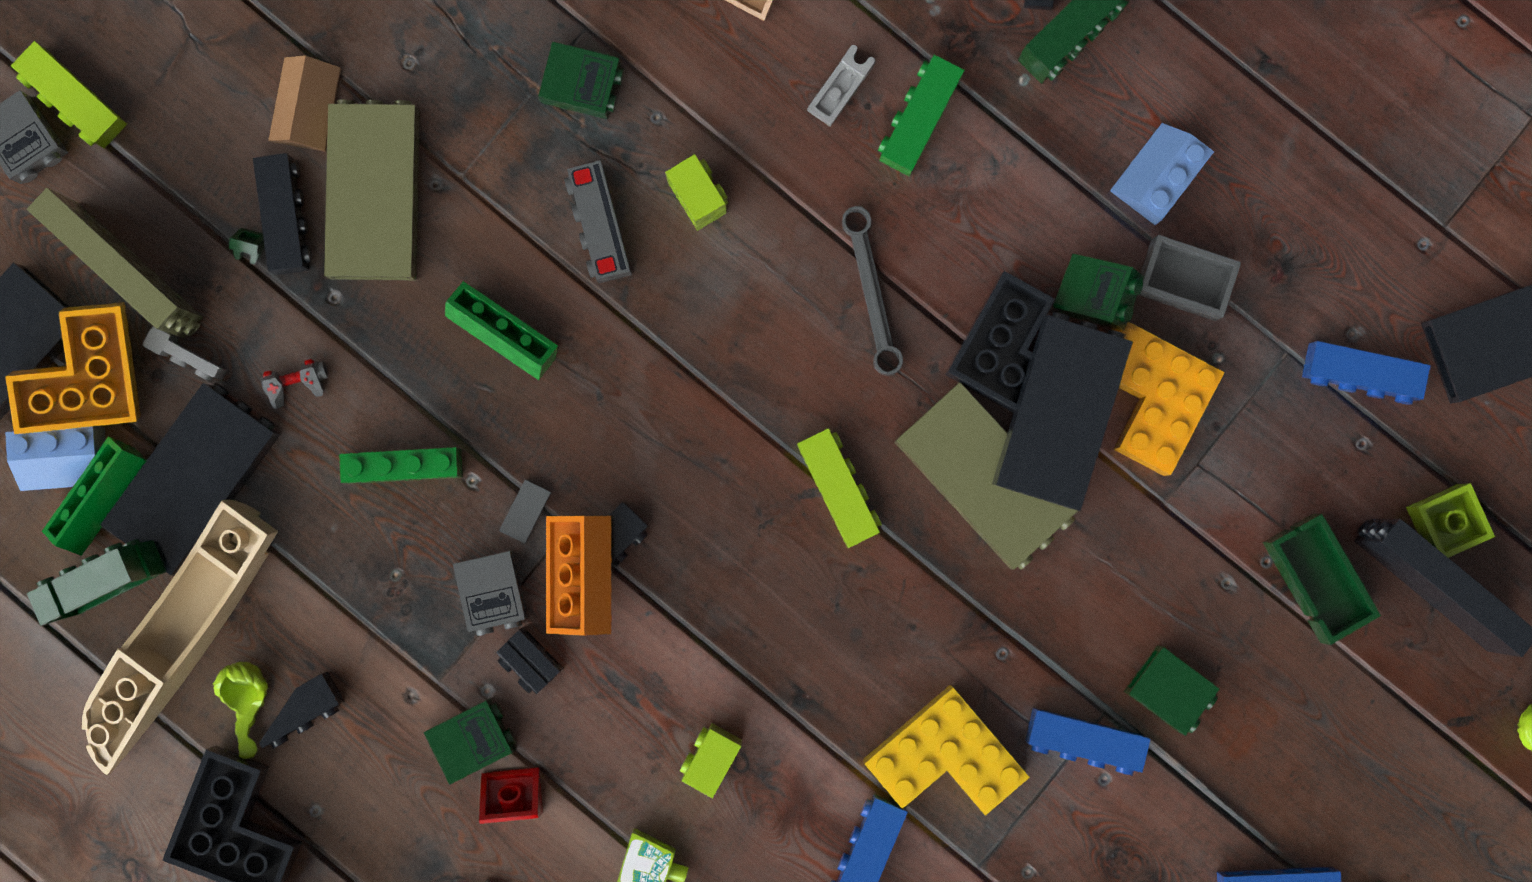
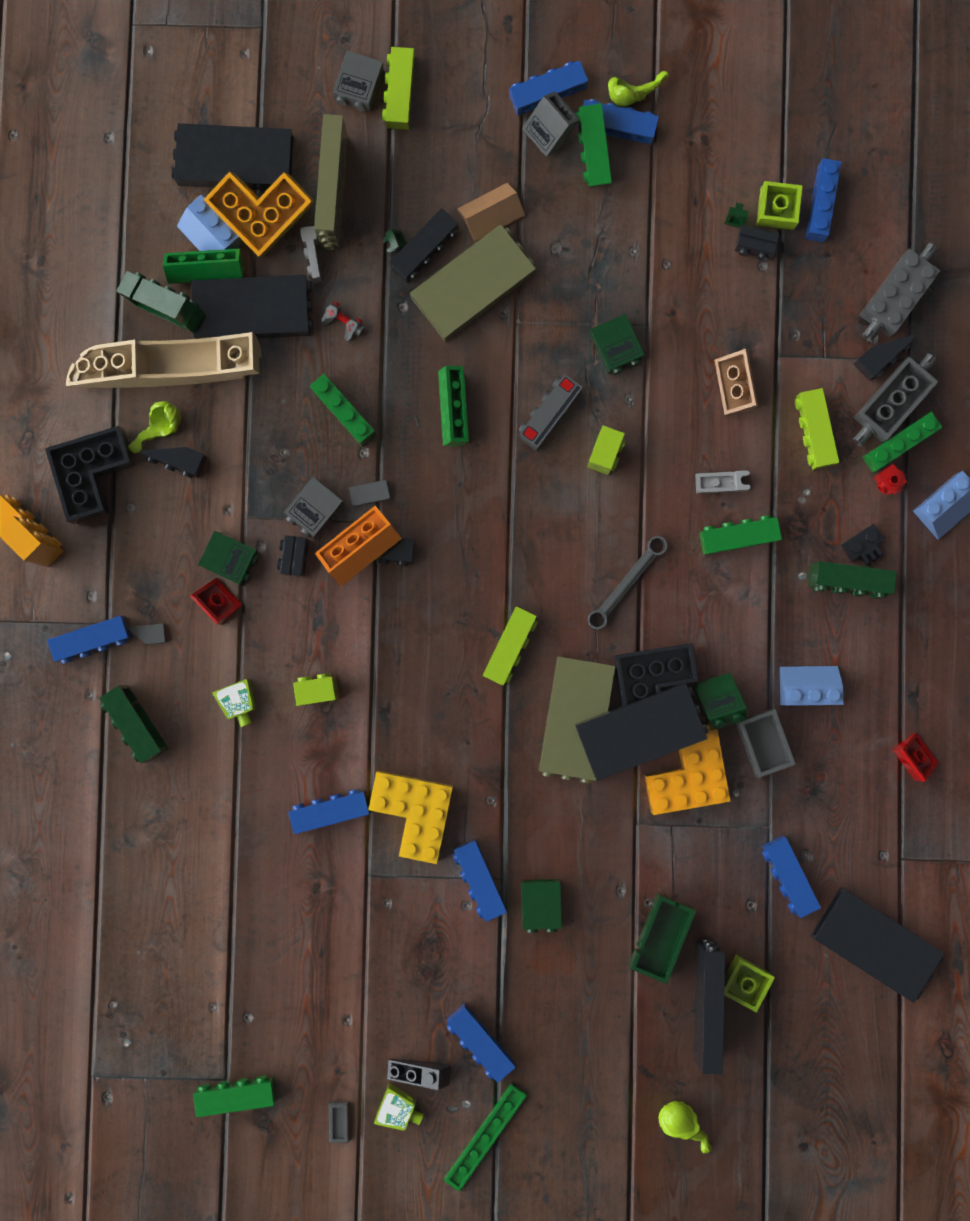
camera: 55 degrees right, 0 degrees up
(1340, 116) = (916, 757): none -> red slope

